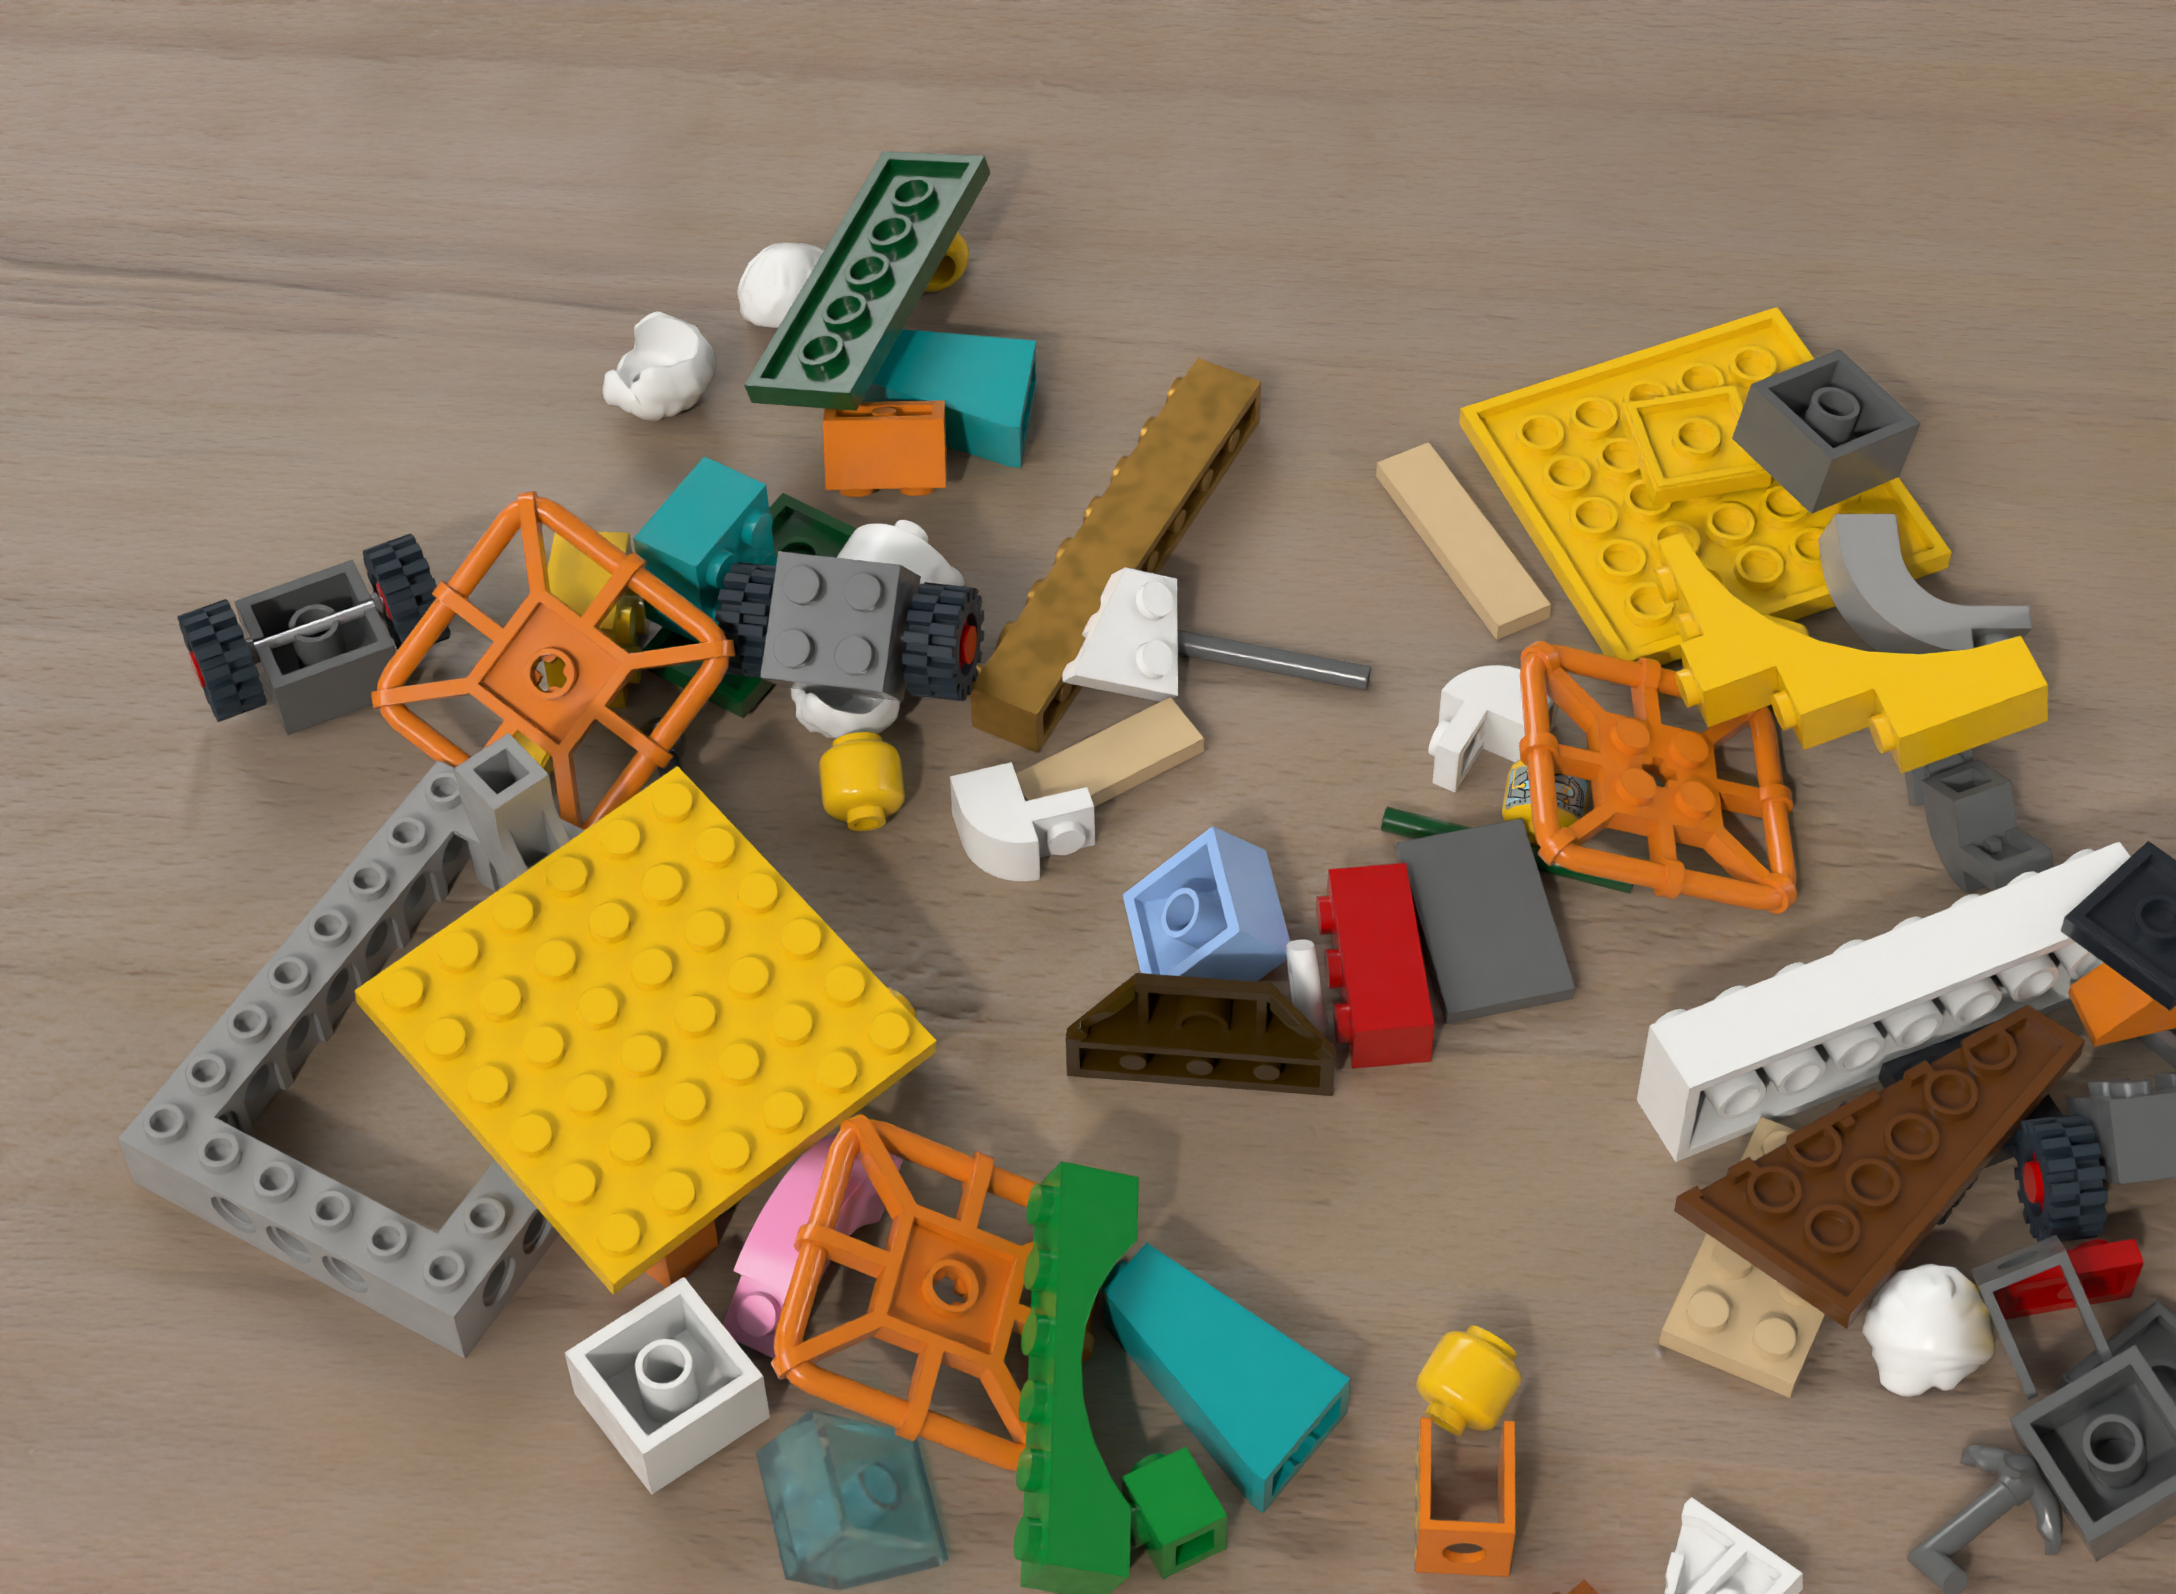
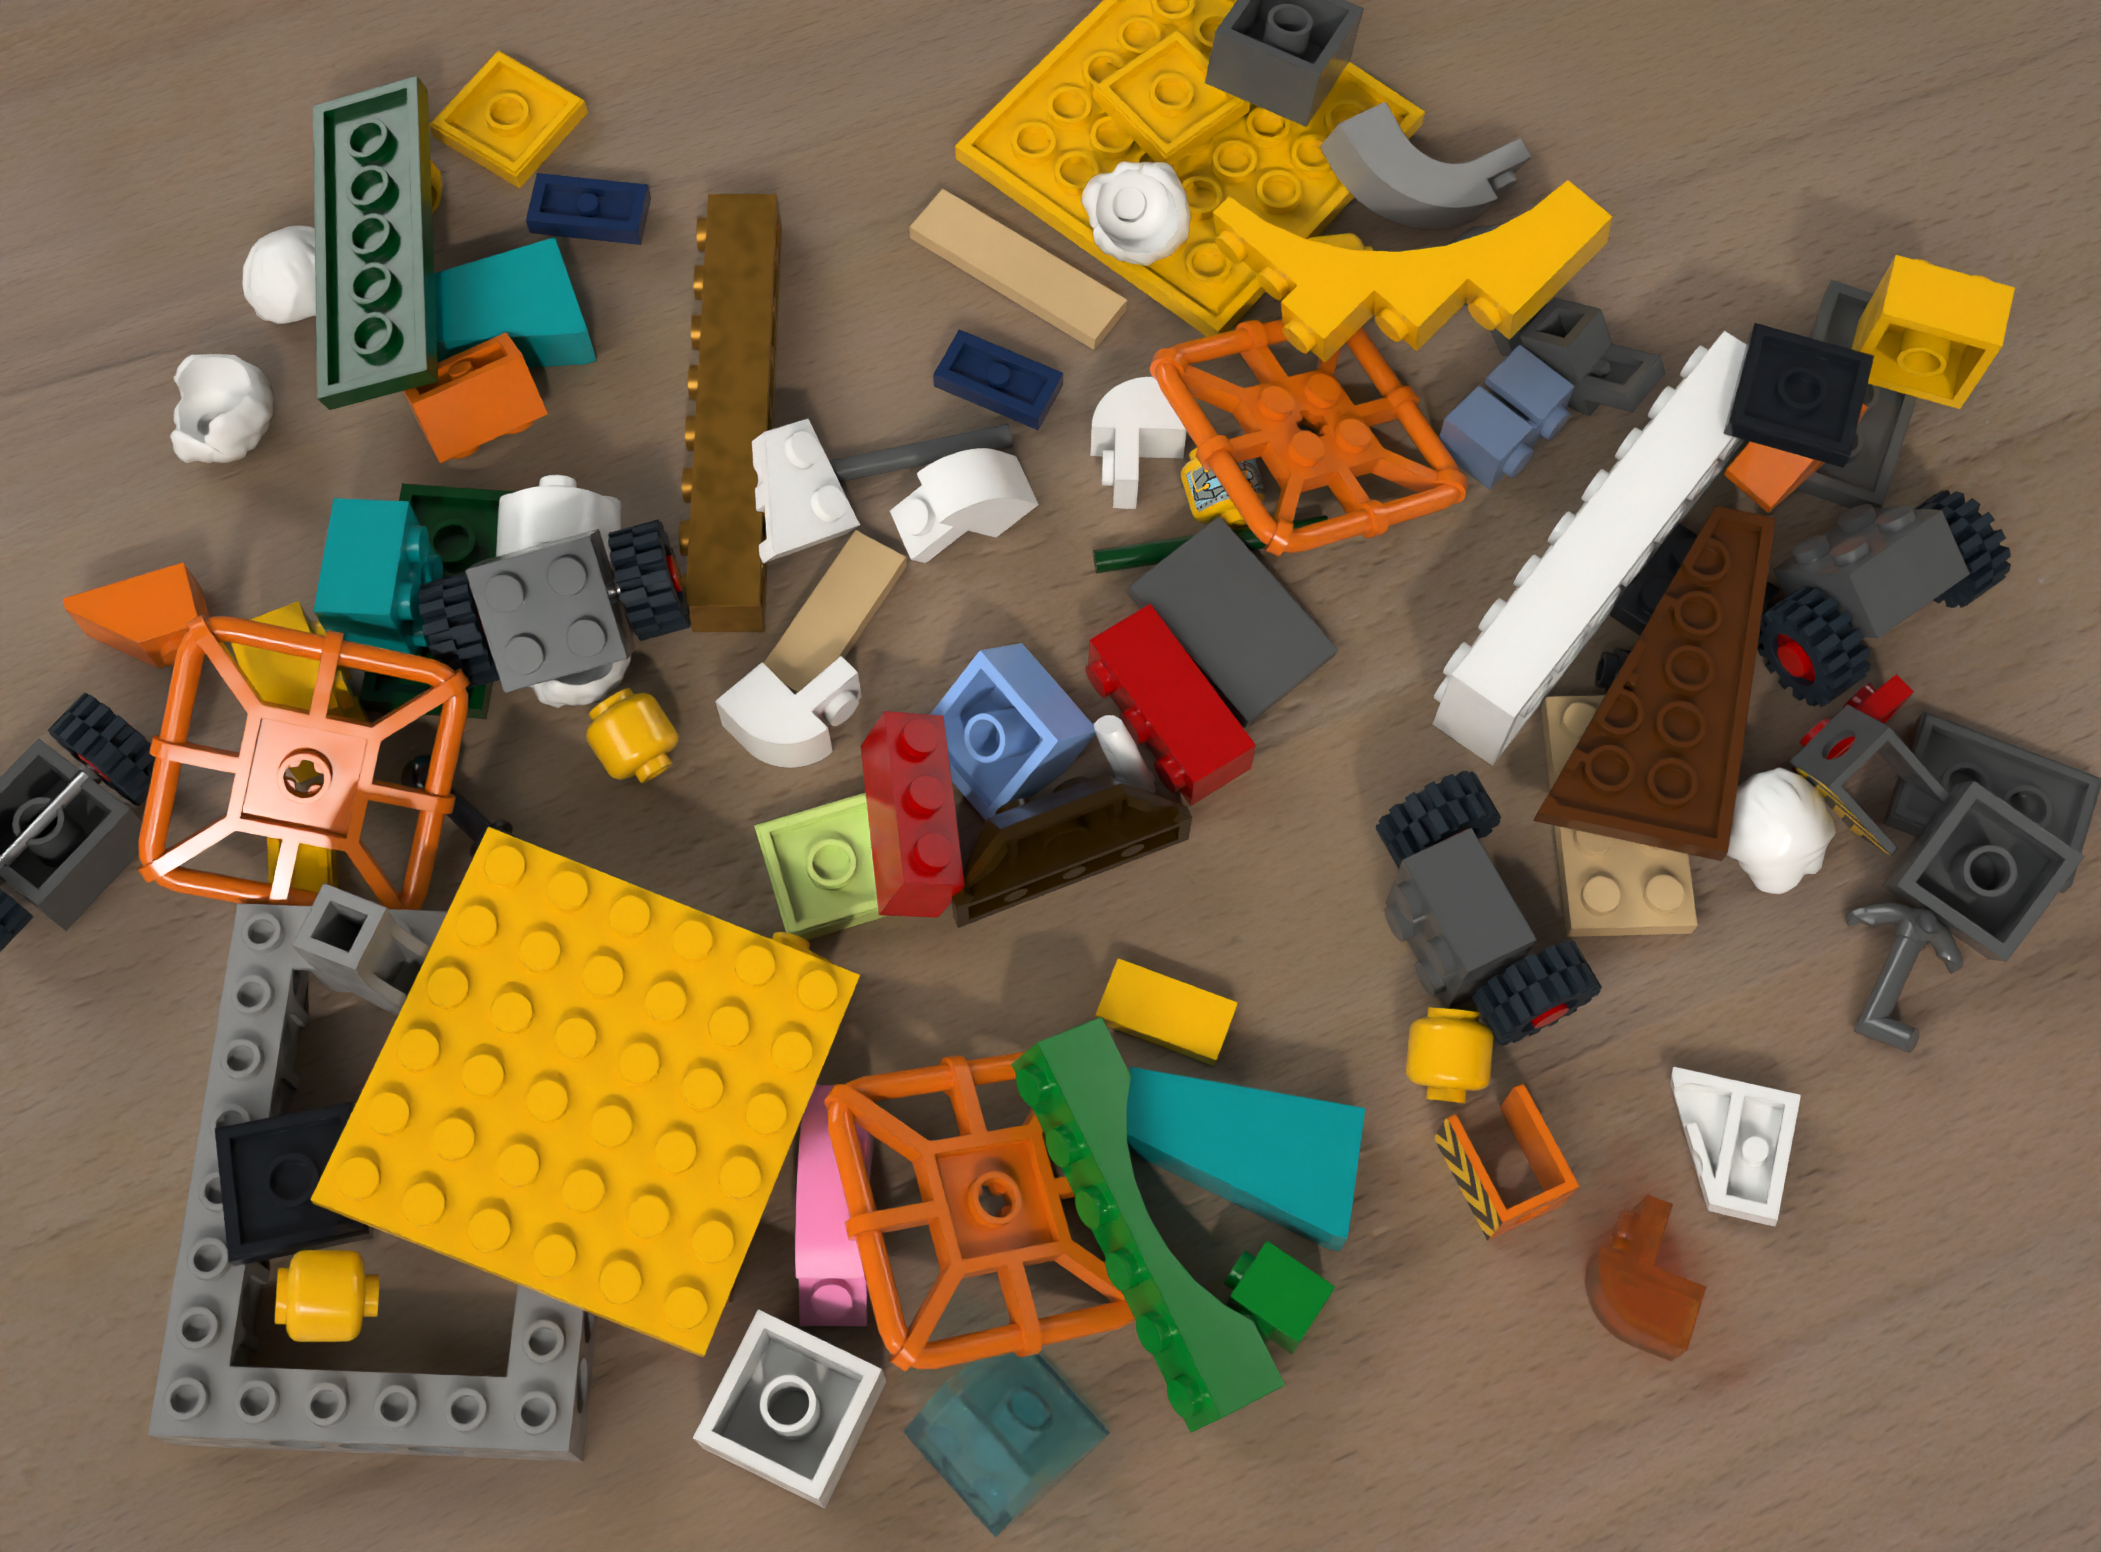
camera: 30 degrees left, 15 degrees up
(318, 997) = (268, 1183): none -> black tile
(324, 1086) = (325, 1295): none -> yellow head
(477, 495) = (142, 613): none -> orange slope
(981, 971) = (821, 867): none -> yellowish green tile
(1060, 236) = (508, 119): none -> yellow tile
(1072, 948) = (911, 815): none -> red brick
(1086, 335) = (588, 208): none -> dark blue plate
(1218, 1229) = (1166, 1012): none -> yellow tile
(1289, 700) = (962, 493): none -> white brick
(1383, 624) = (998, 379): none -> dark blue plate
(1543, 1263) = (1465, 920): none -> brick
(1594, 522) = (1138, 212): none -> white hair
(1859, 867) = (1497, 428): none -> sand blue piece

